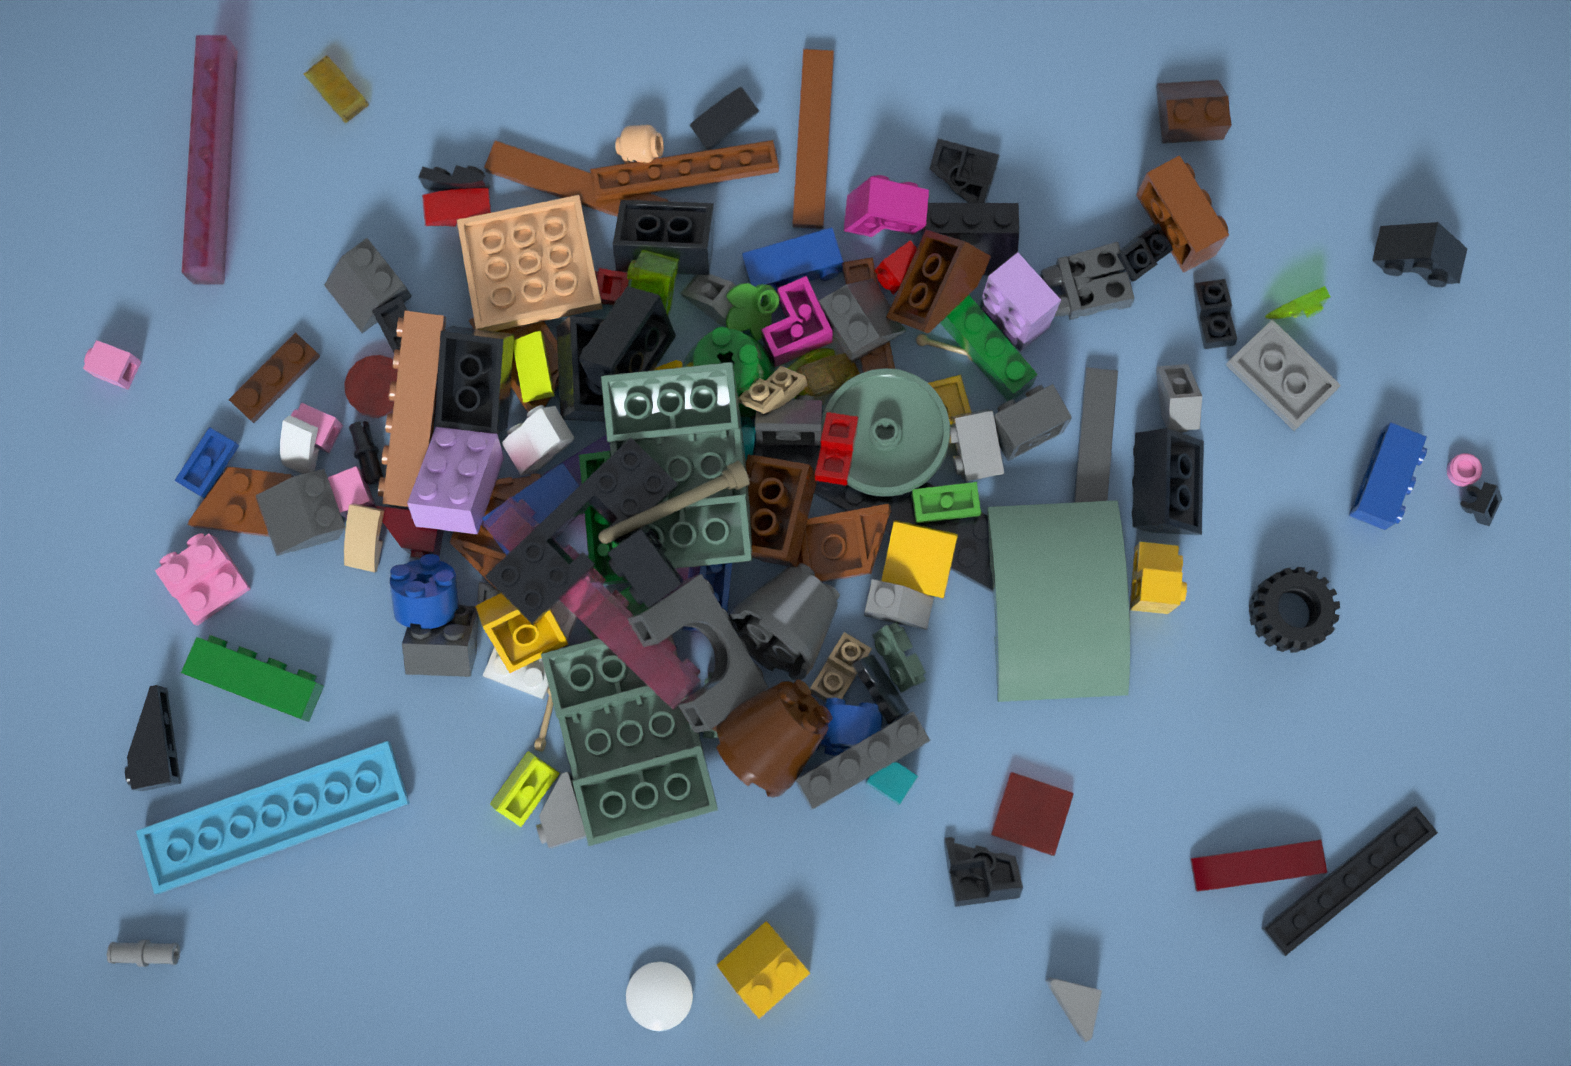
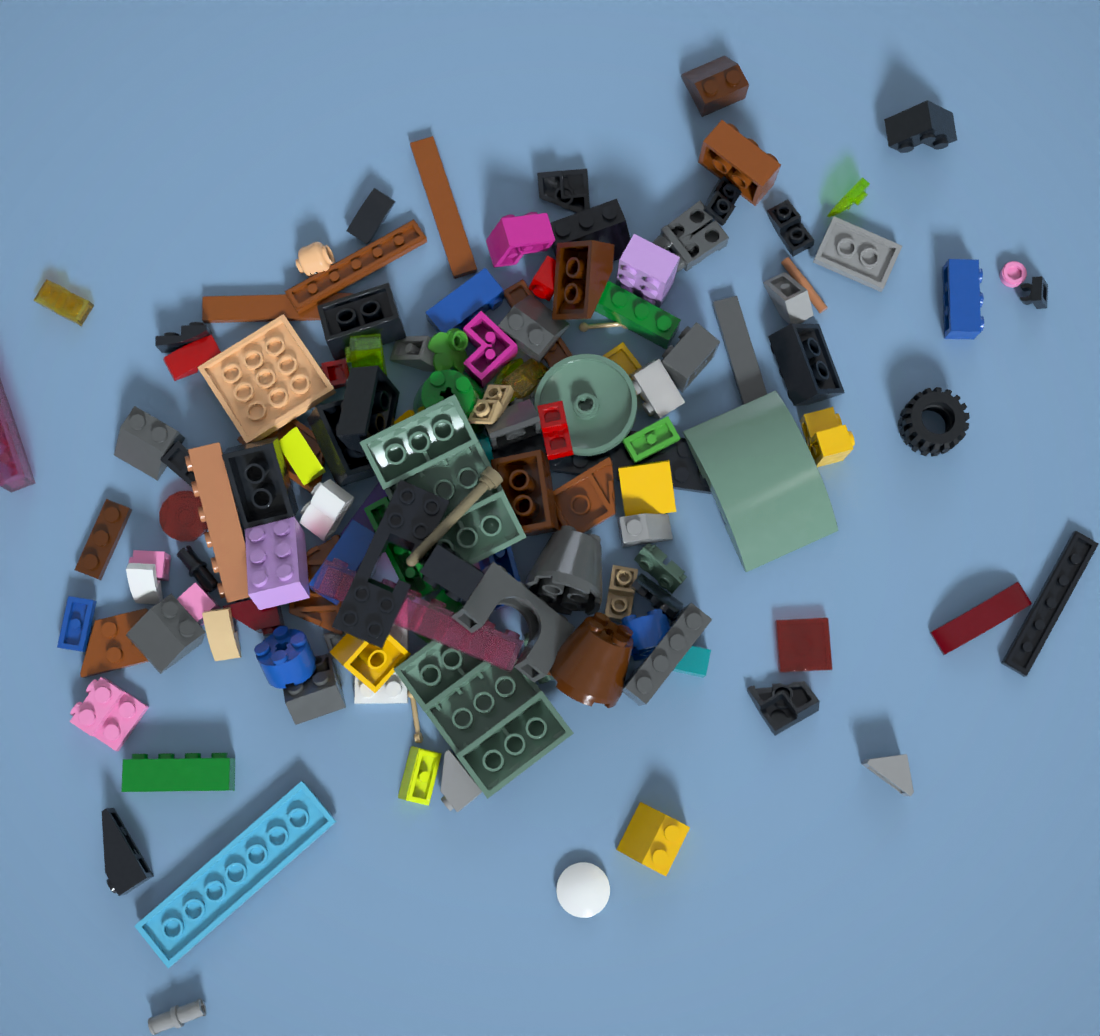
camera: 25 degrees left, 0 degrees up
(1205, 388) = (797, 275): none -> nougat piece

